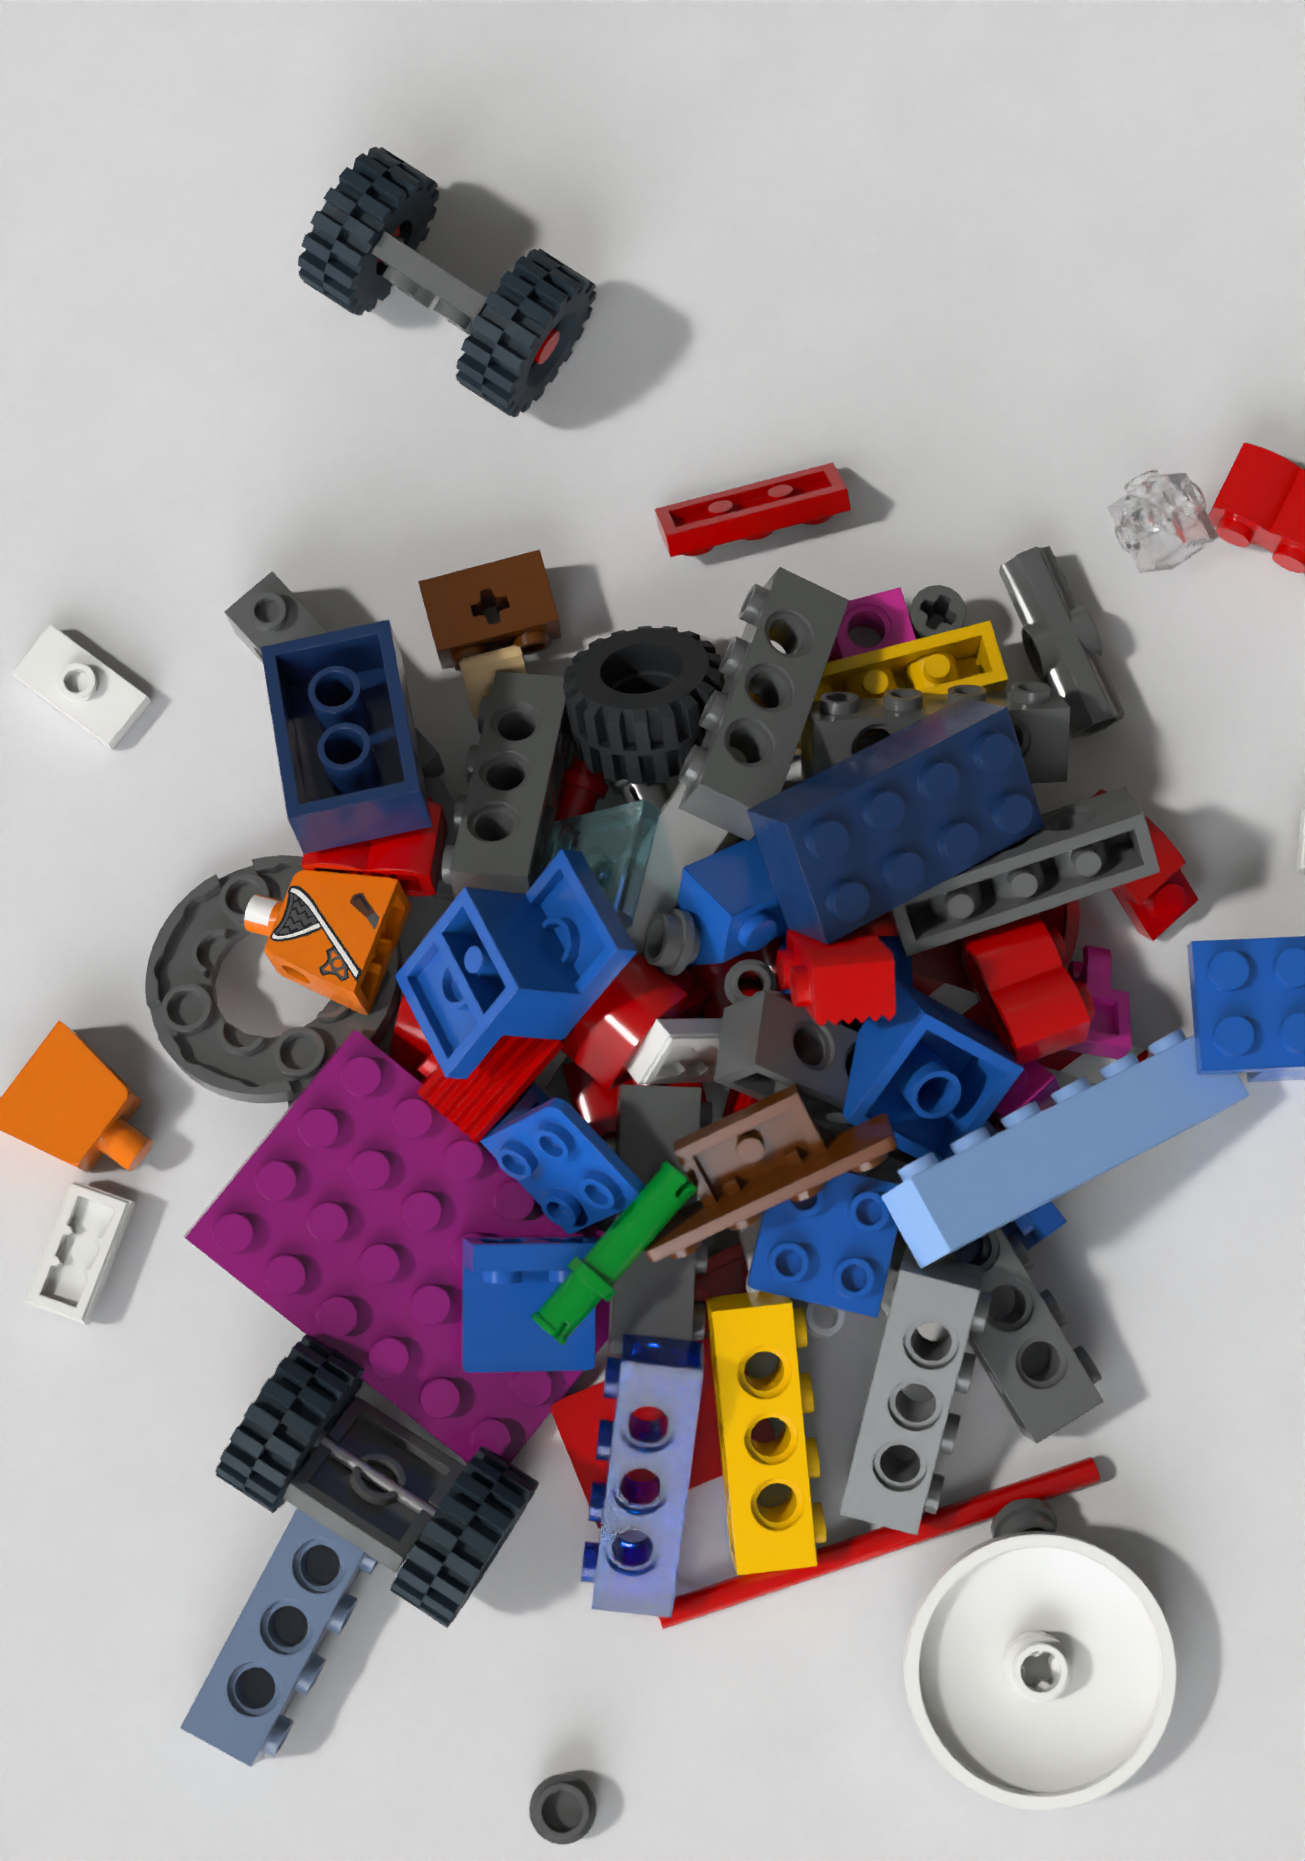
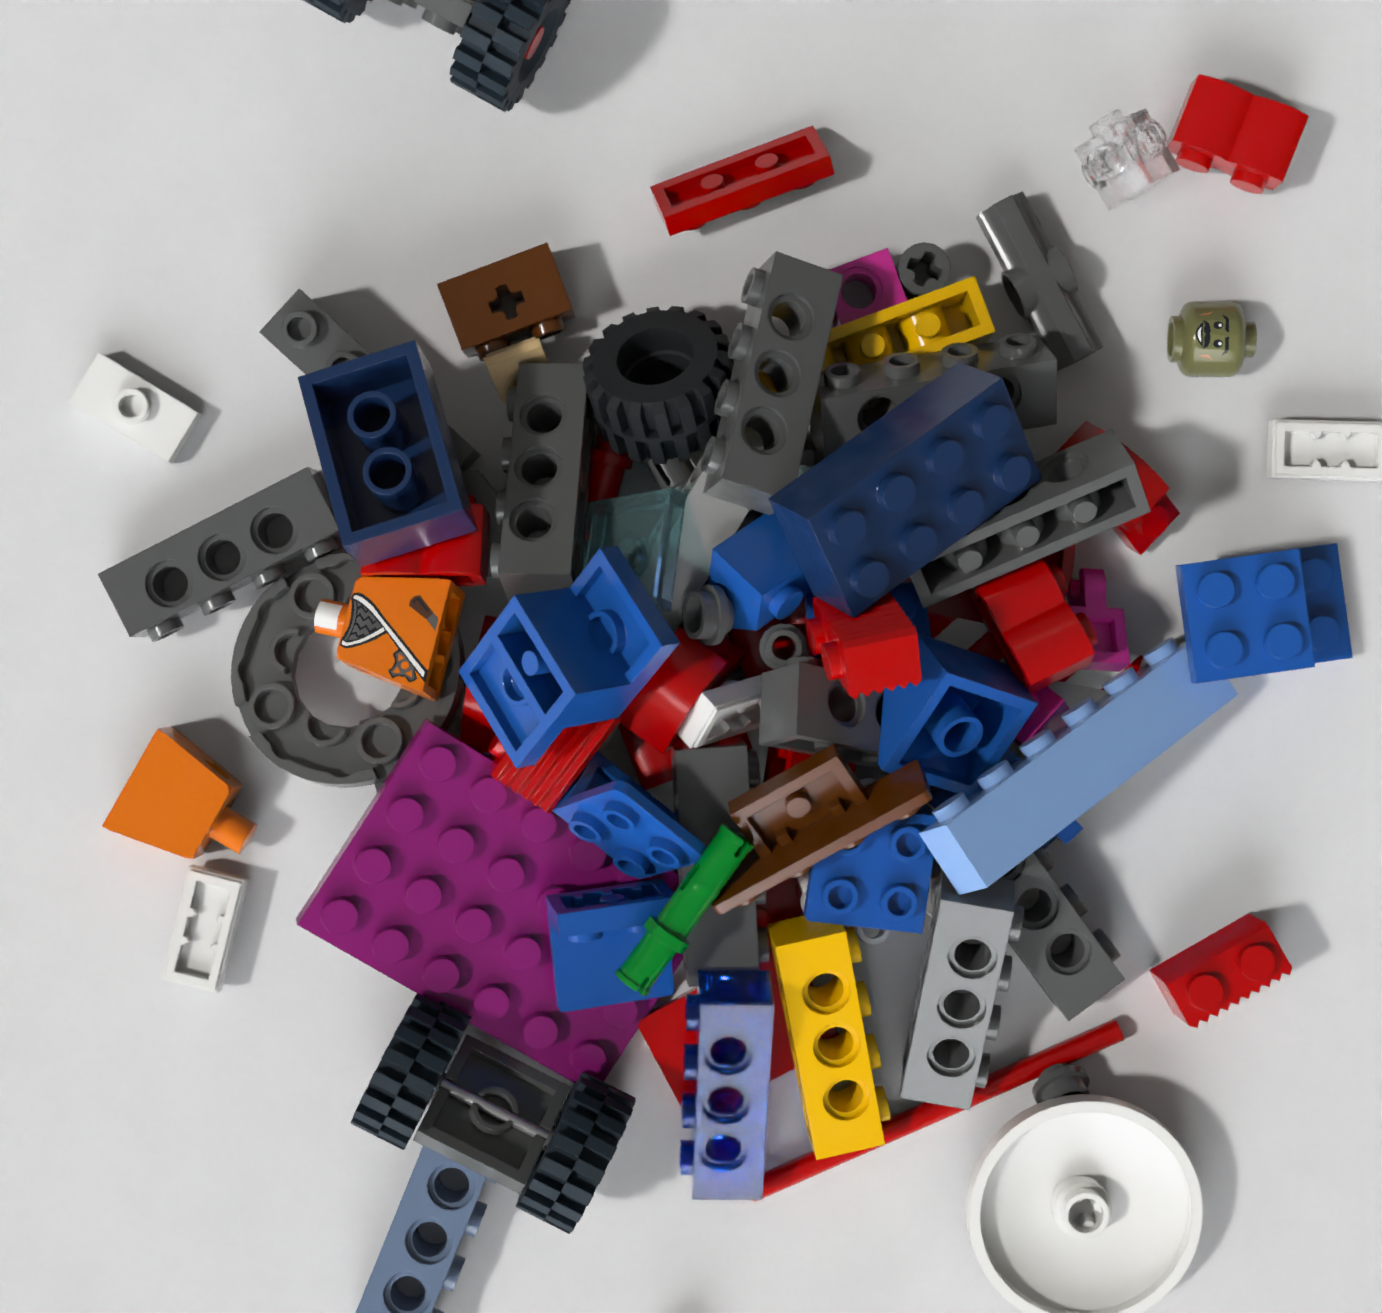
camera: 10 degrees left, 10 degrees up
(60, 862) = (138, 582): none -> dark grey brick
(1214, 1406) = (1221, 970): none -> red brick
(1242, 717) = (1210, 339): none -> olive head

